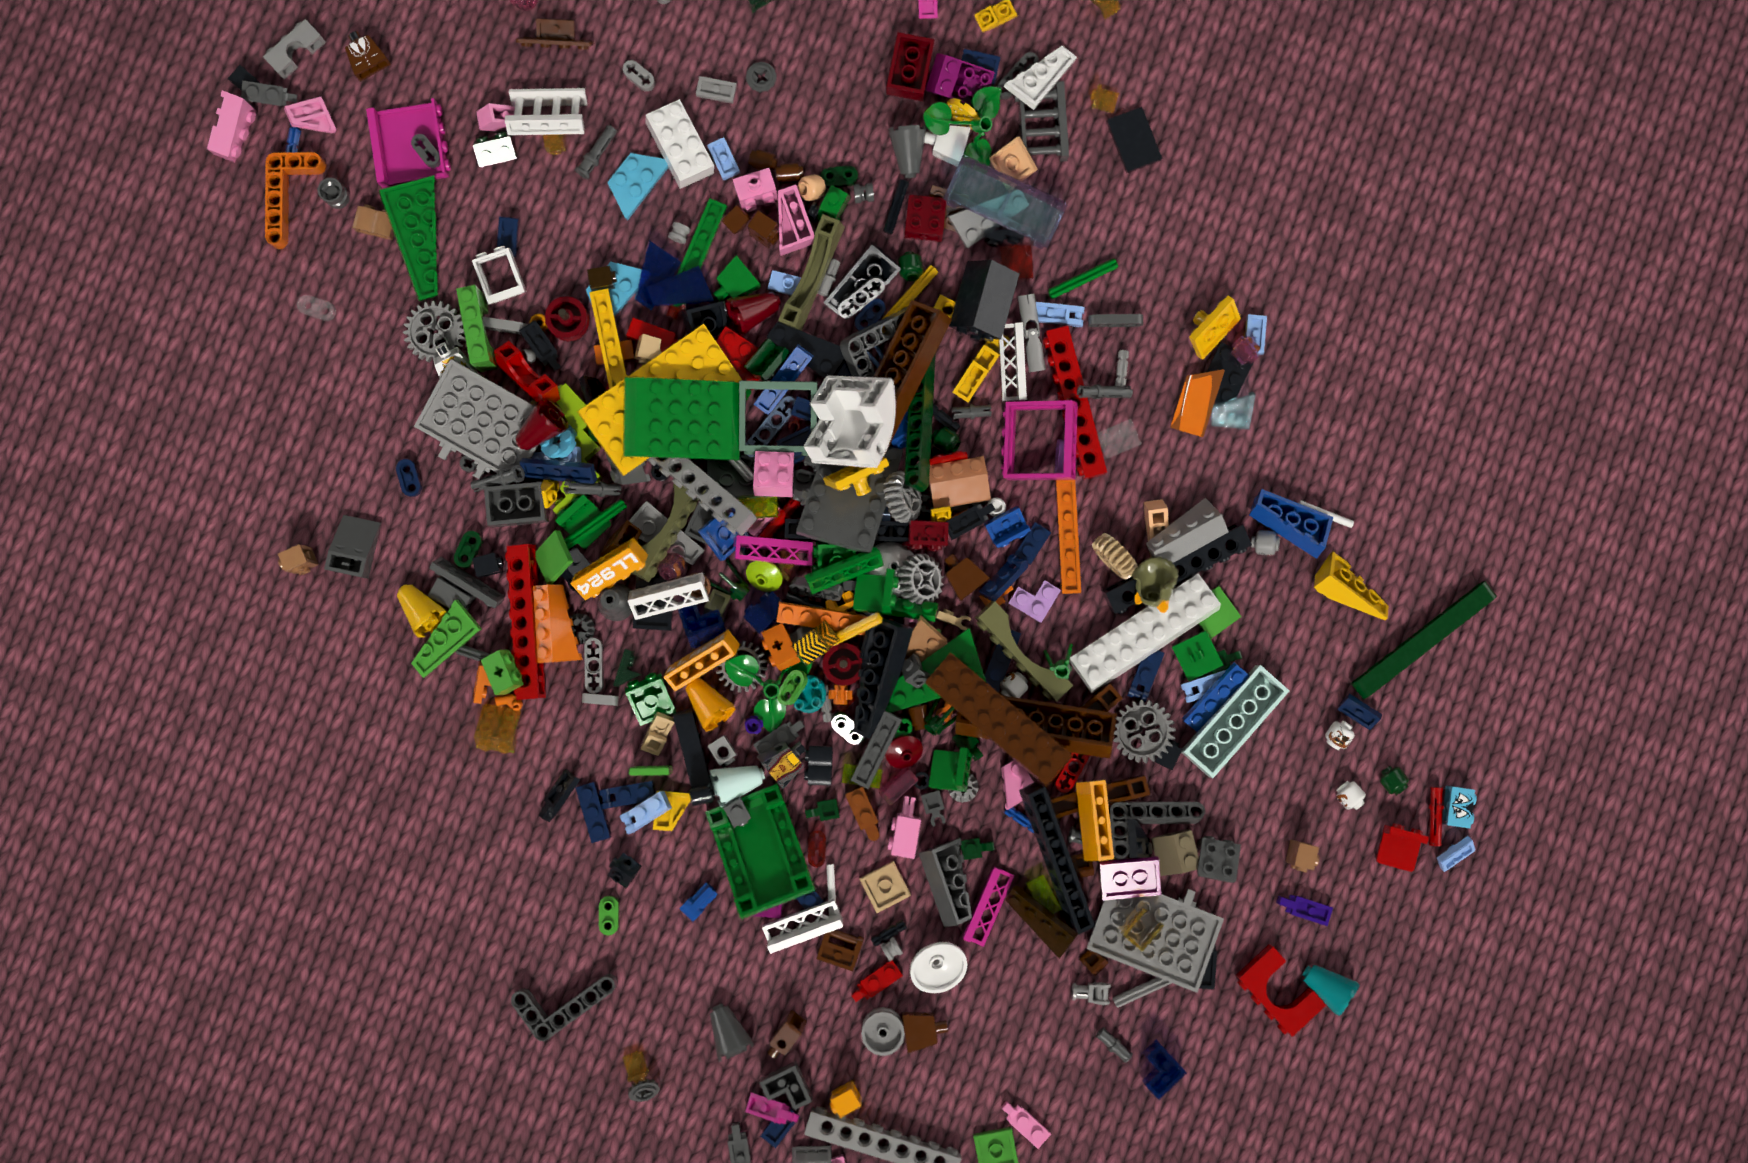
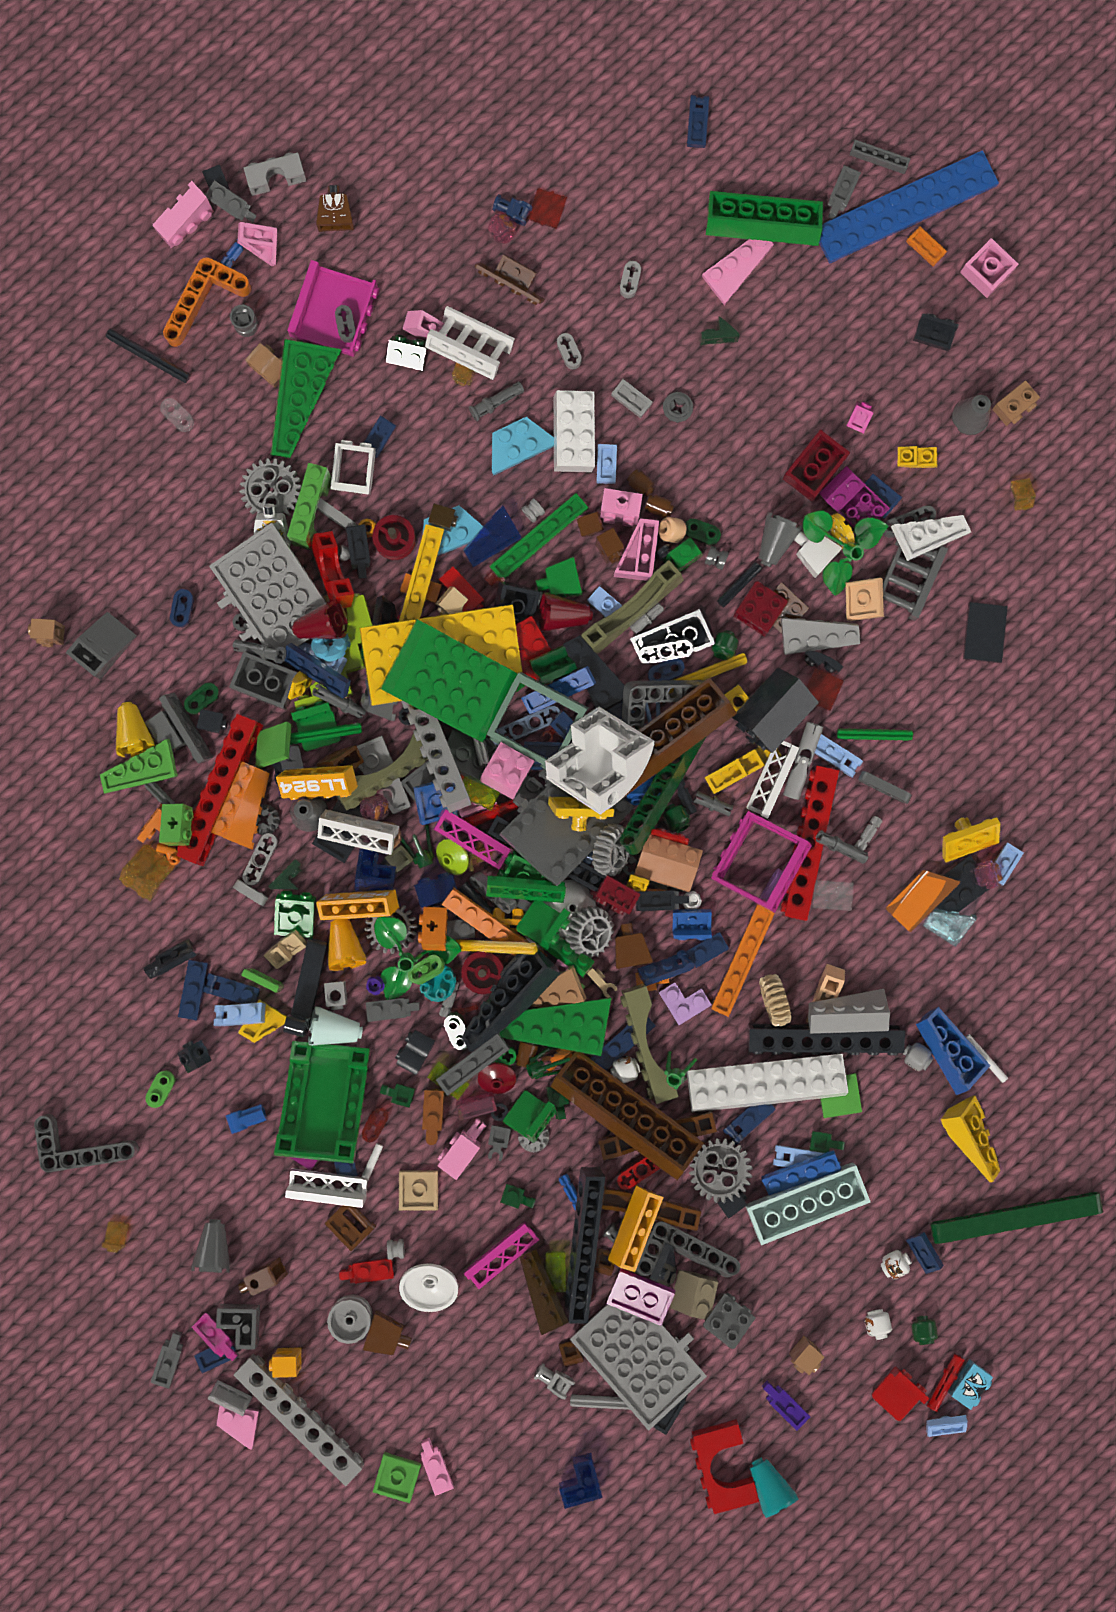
camera: 25 degrees right, 0 degrees up
(262, 268) = (147, 355): none -> black axle
(643, 1090) = (111, 1261): dark grey gear -> none
(680, 289) = (510, 562): clear blue wing -> none
(737, 812) = (320, 1056): dark grey bracket -> none
(782, 762) = (384, 1032): torso -> none
(815, 643) = (467, 941): piece -> none
(840, 694) = (466, 998): orange gear -> none
(888, 933) = (400, 1233): black axle -> none
(914, 672) = (541, 1012): dark grey bracket -> none
(947, 881) = (476, 1214): dark grey wedge -> none
(998, 719) = (594, 1095): reddish brown brick -> none
(1005, 200) = (840, 630): clear light blue windscreen -> none
(1014, 778) = (583, 1155): bright pink wing -> none
(1104, 99) = (976, 582): clear yellow bracket -> none
(1114, 1045) = (550, 1438): dark grey pin -> none
(1149, 938) = (631, 1359): clear yellow piece -> none
(1155, 582) = (798, 1043): olive hair -> none
(1197, 656) = (804, 1127): green piece -> none

